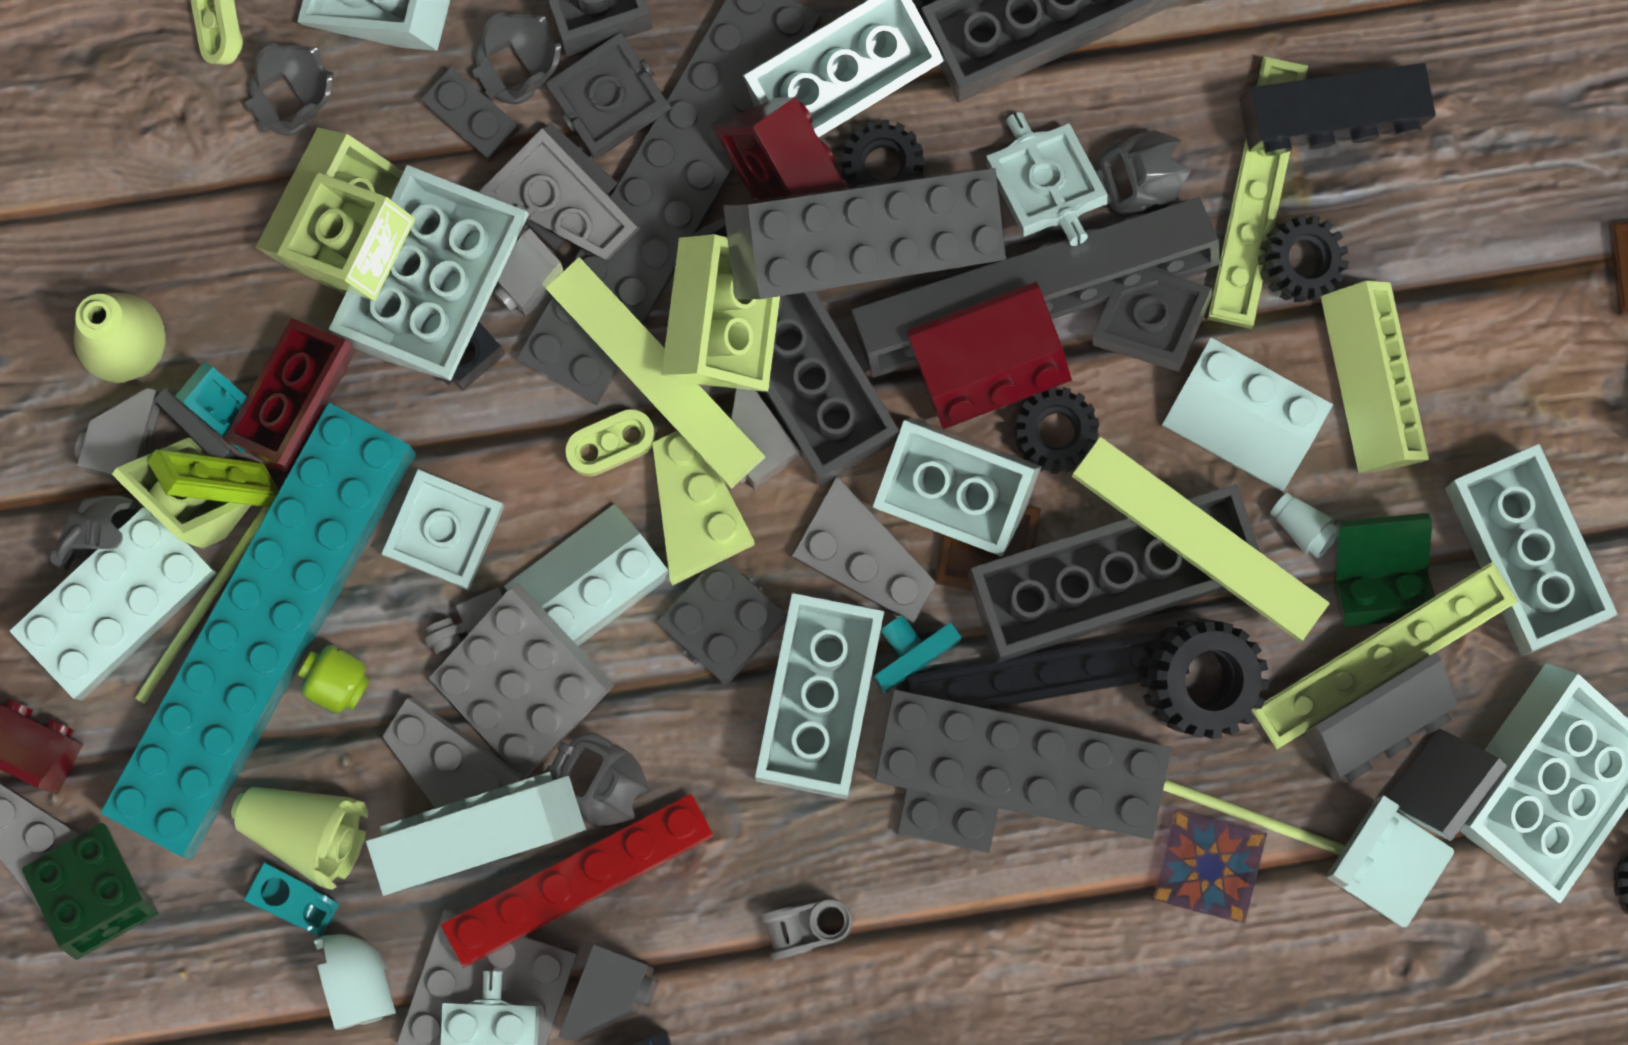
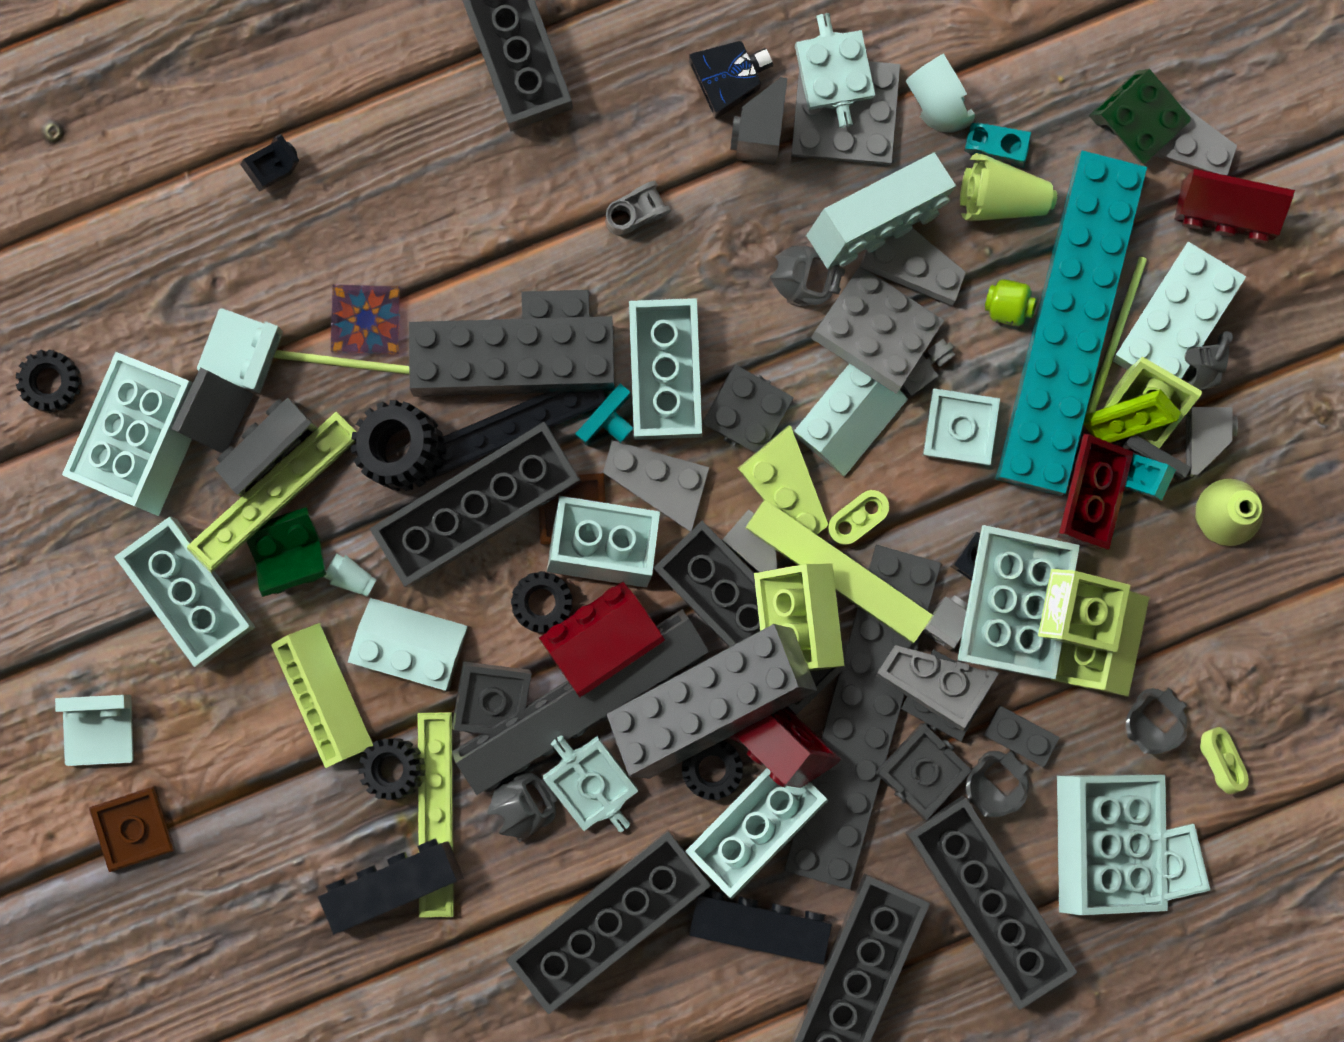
camera: 165 degrees right, 5 degrees up
(576, 881) = (804, 203): red plate -> none
(1200, 539) = (421, 538): yellowish green tile -> none

